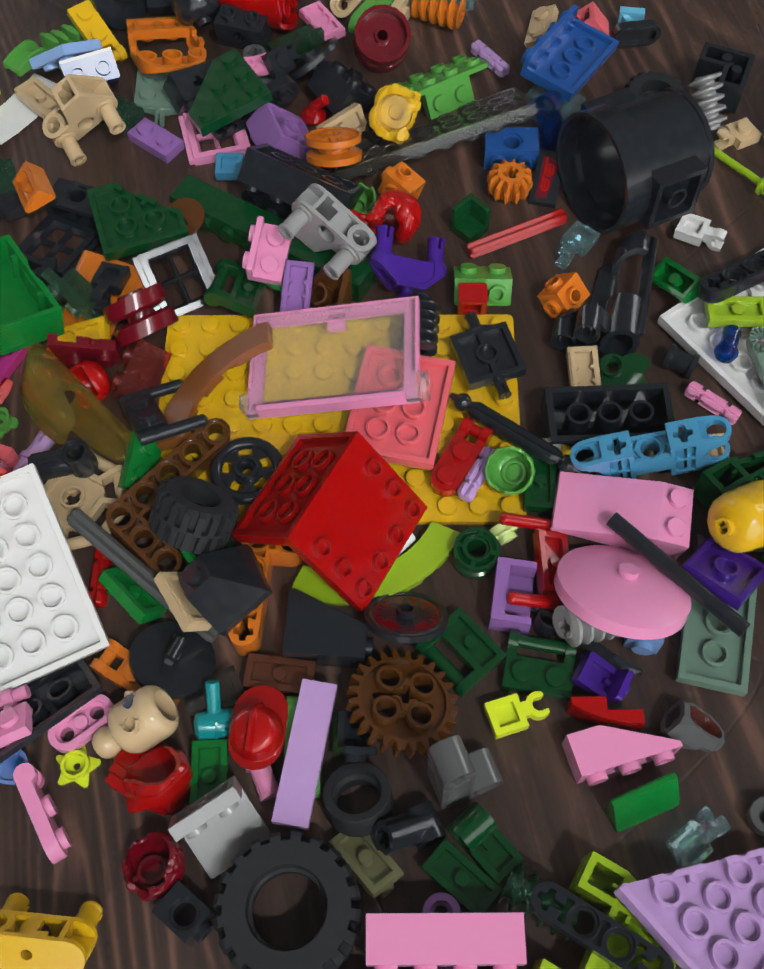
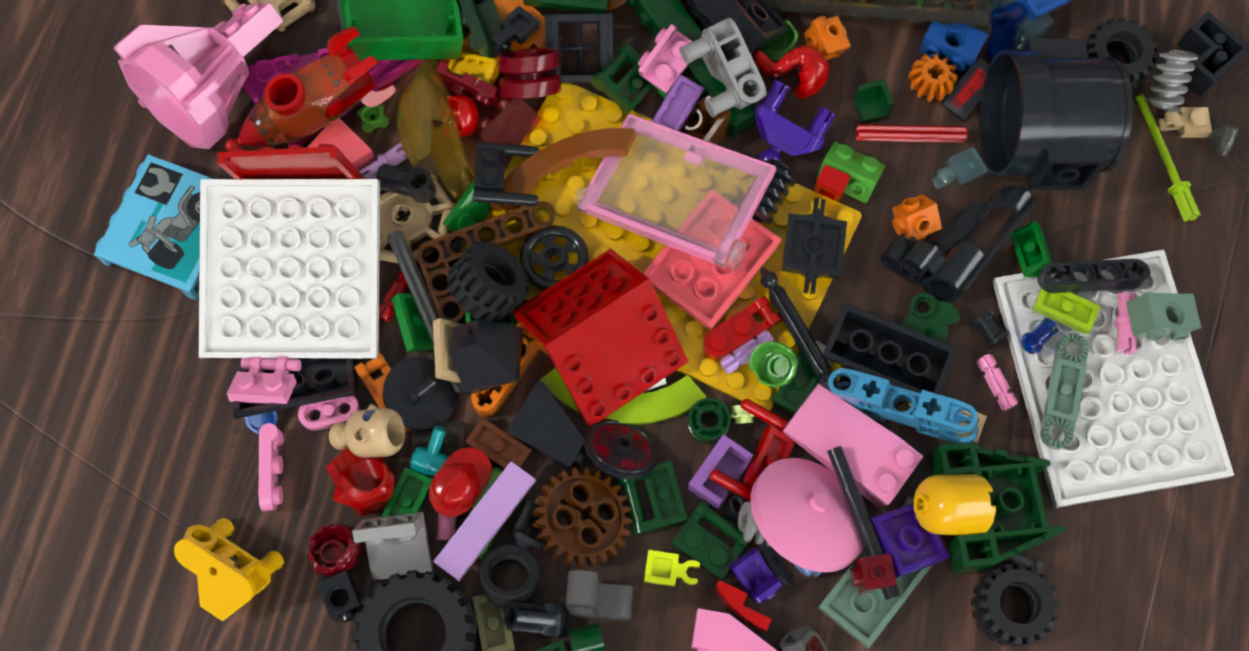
camera: 25 degrees right, 10 degrees up
(80, 776) = (304, 439): neon yellow plate -> none
(583, 366) = (895, 297): tan plate -> none
(696, 229) = (1085, 206): white plate -> none
(713, 617) = (873, 573): none -> dark red bracket

